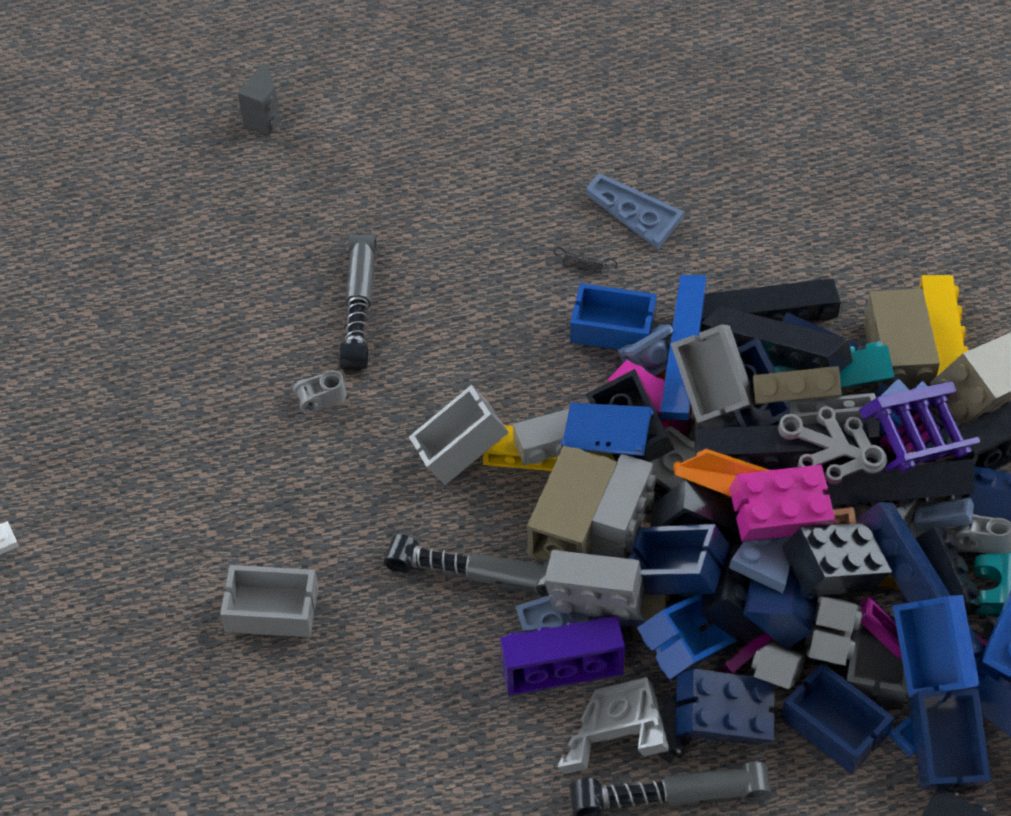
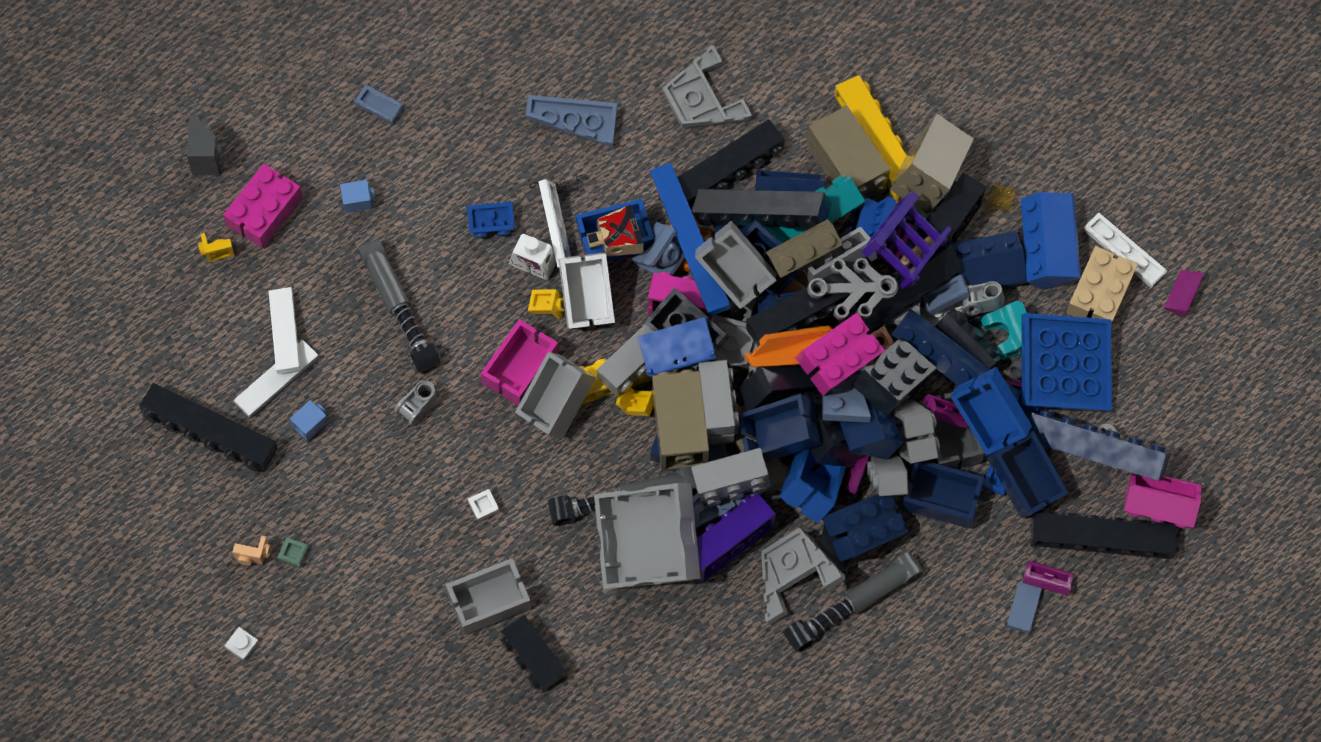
camera: 30 degrees left, 15 degrees up
(71, 462) = (247, 555): none -> light nougat bracket
(106, 331) = (208, 427): none -> black brick
(109, 477) = (293, 552): none -> sand green tile
(200, 318) = (271, 383): none -> white tile
(205, 364) = (309, 420): none -> medium blue brick
(220, 188) = (217, 250): none -> yellow bracket
(234, 279) = (284, 330): none -> white tile
(280, 682) = (532, 654): none -> black brick
(286, 168) = (262, 205): none -> dark pink piece
(324, 514) = (483, 505): none -> white plate
(379, 194) = (357, 196): none -> medium blue brick
(434, 388) = (517, 361): none -> dark pink piece
(452, 132) = (379, 104): none -> sand blue tile
(469, 607) = (647, 536): none -> light grey tile
(497, 261) = (490, 217): none -> blue bracket
(508, 355) = (547, 302): none -> yellow bracket
(517, 308) = (532, 256): none -> white torso
(535, 478) = (636, 402): none -> yellow bracket
(550, 353) = (586, 290): none -> white piece
(556, 290) = (554, 220): none -> white tile
(611, 311) = (618, 233): none -> torso
(765, 239) = (694, 99): none -> light grey wing

